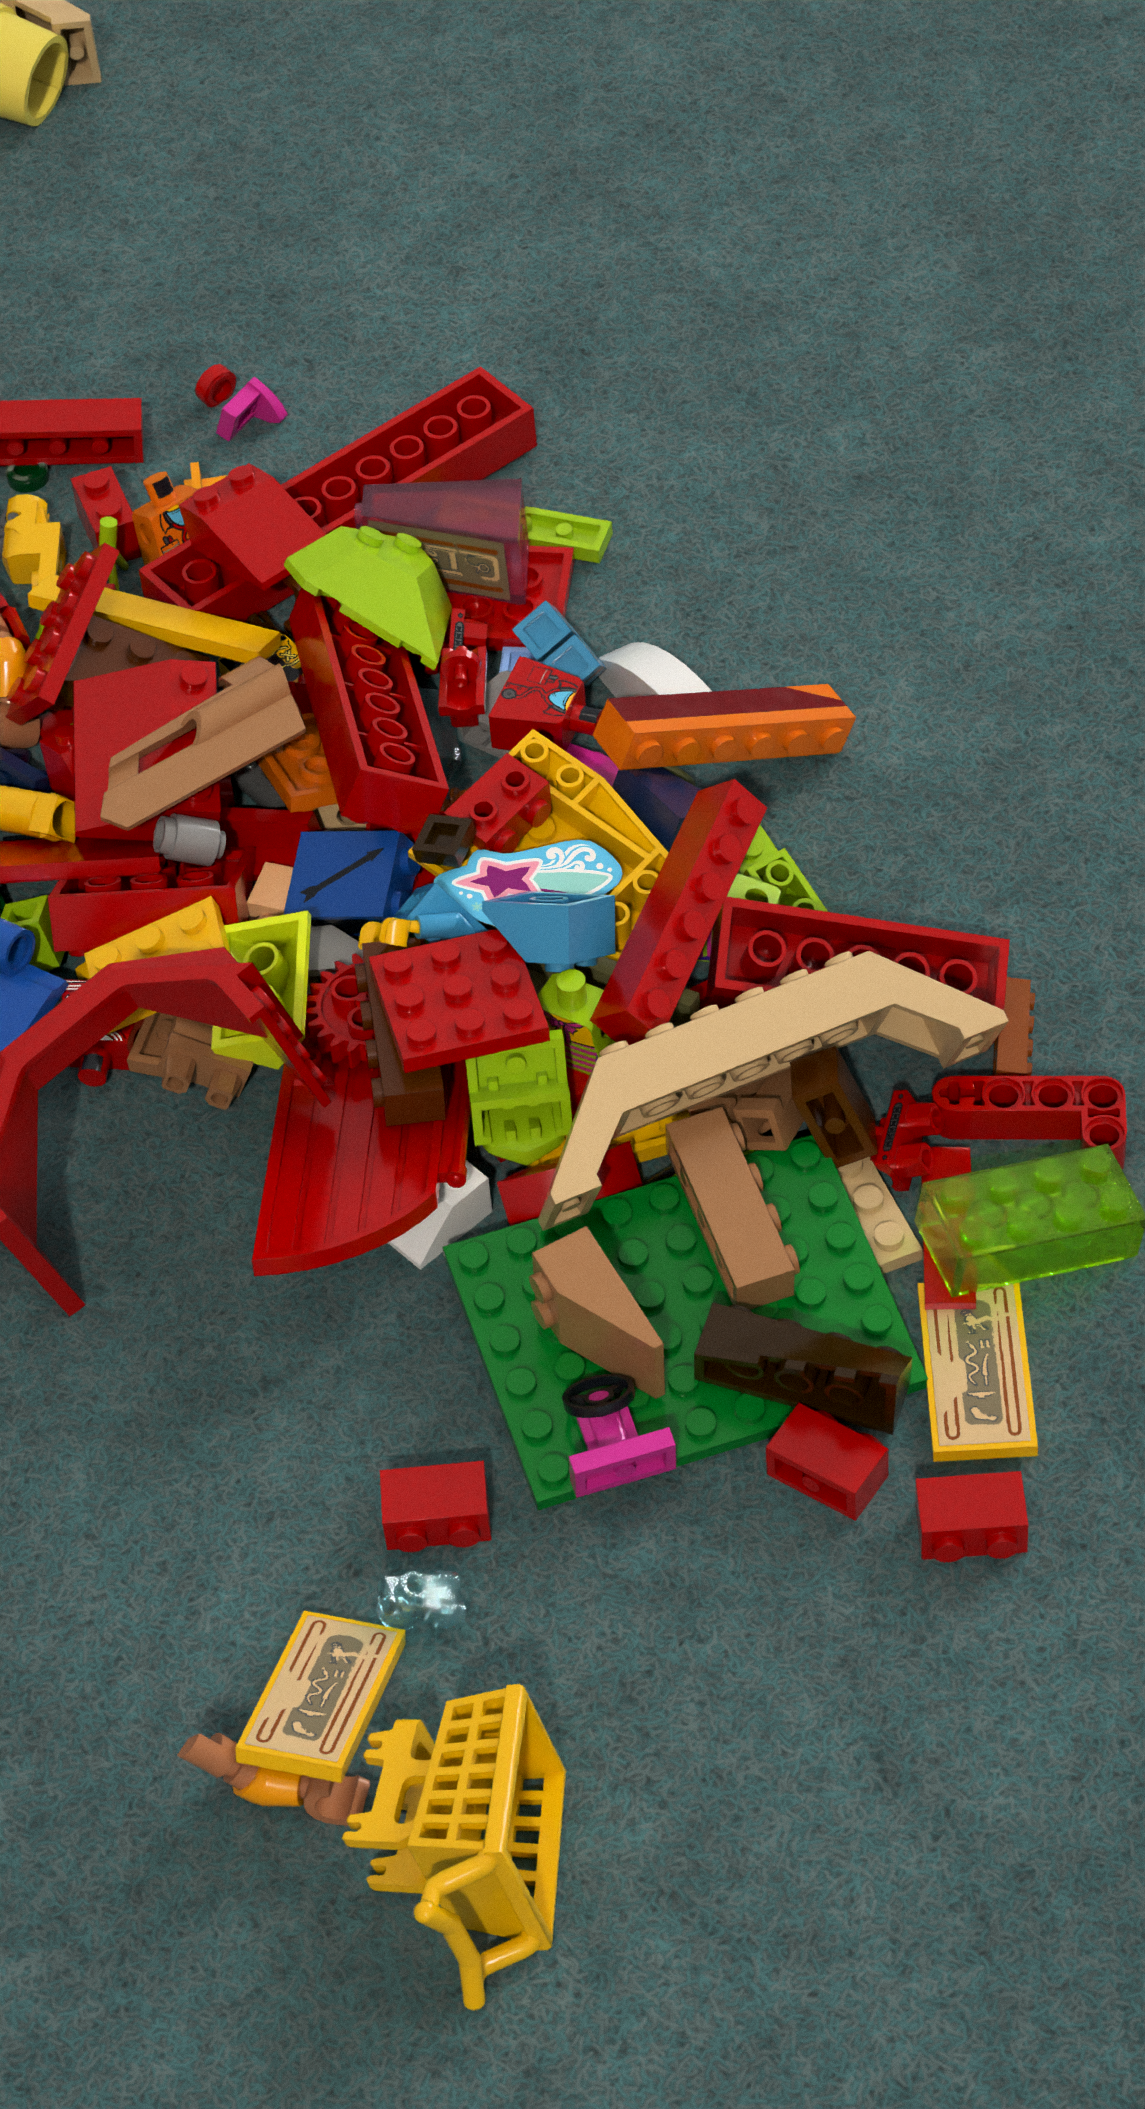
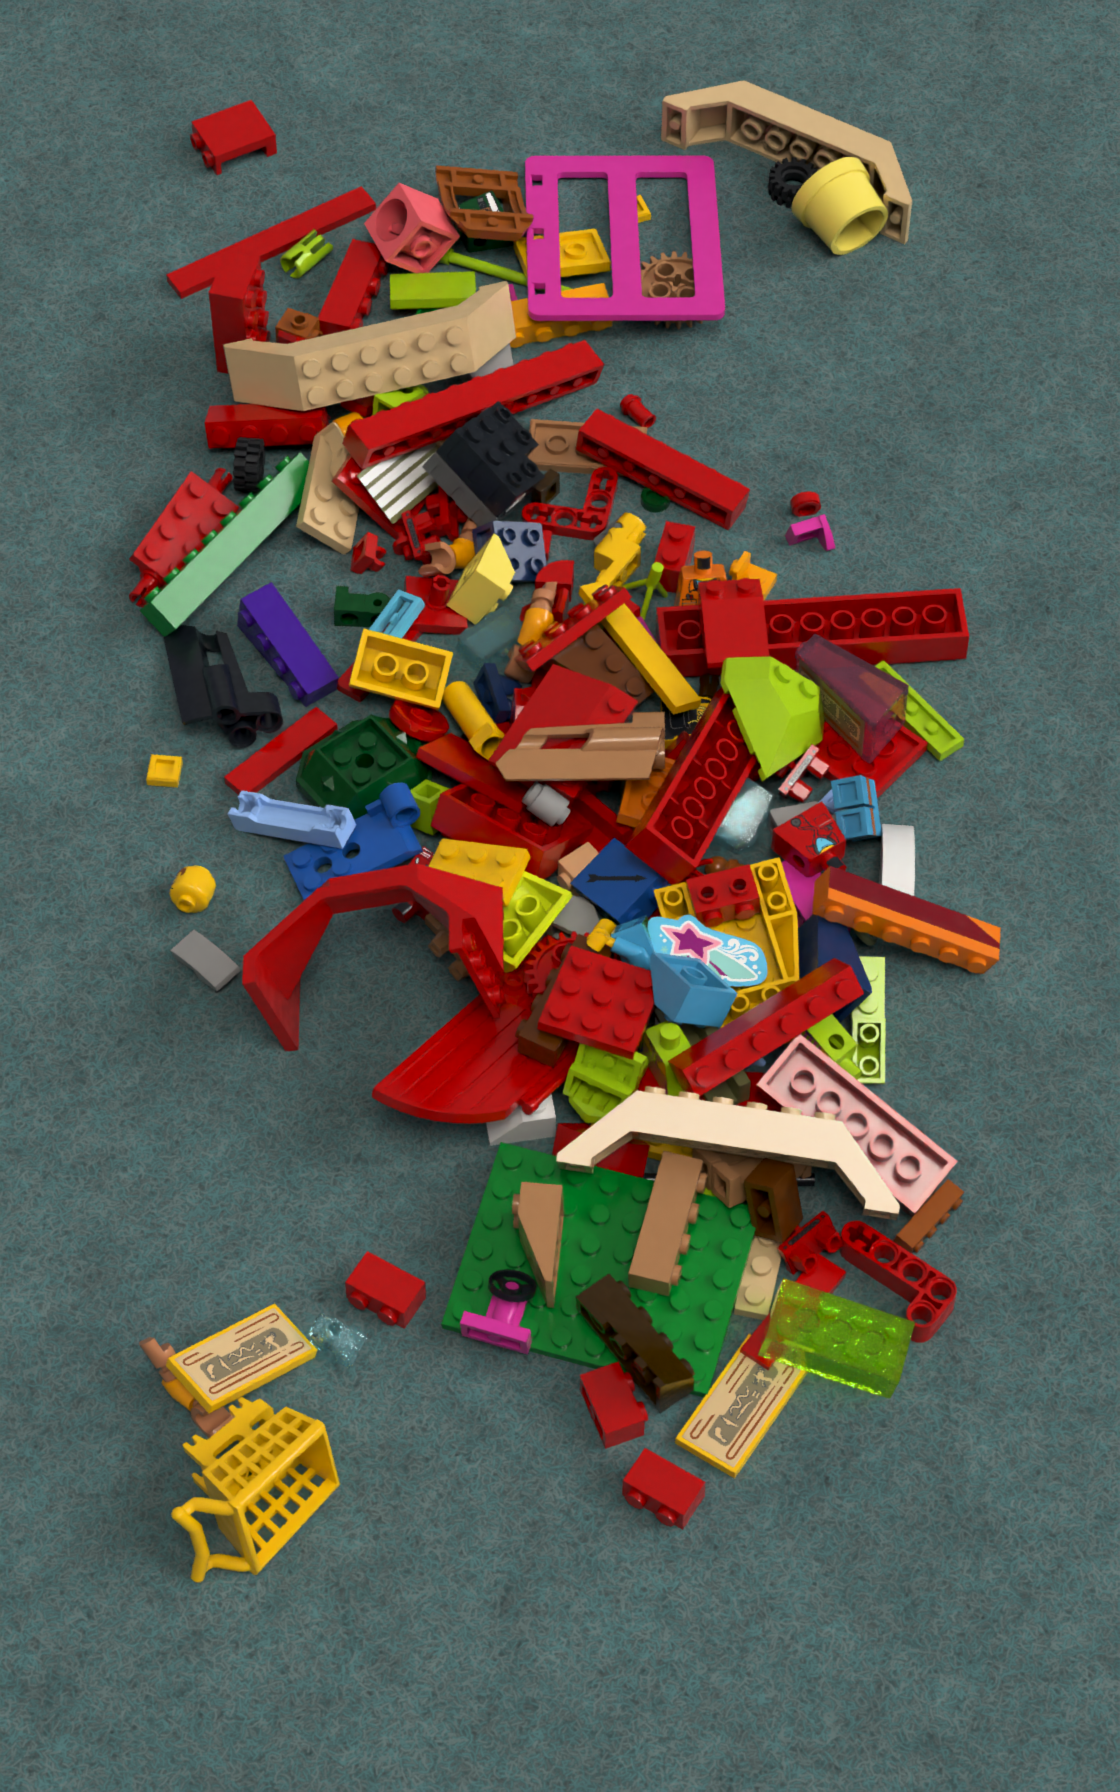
camera: 30 degrees right, 5 degrees up
(444, 840) = (671, 898): dark brown plate -> none
(463, 685) = (779, 797): red hips -> none

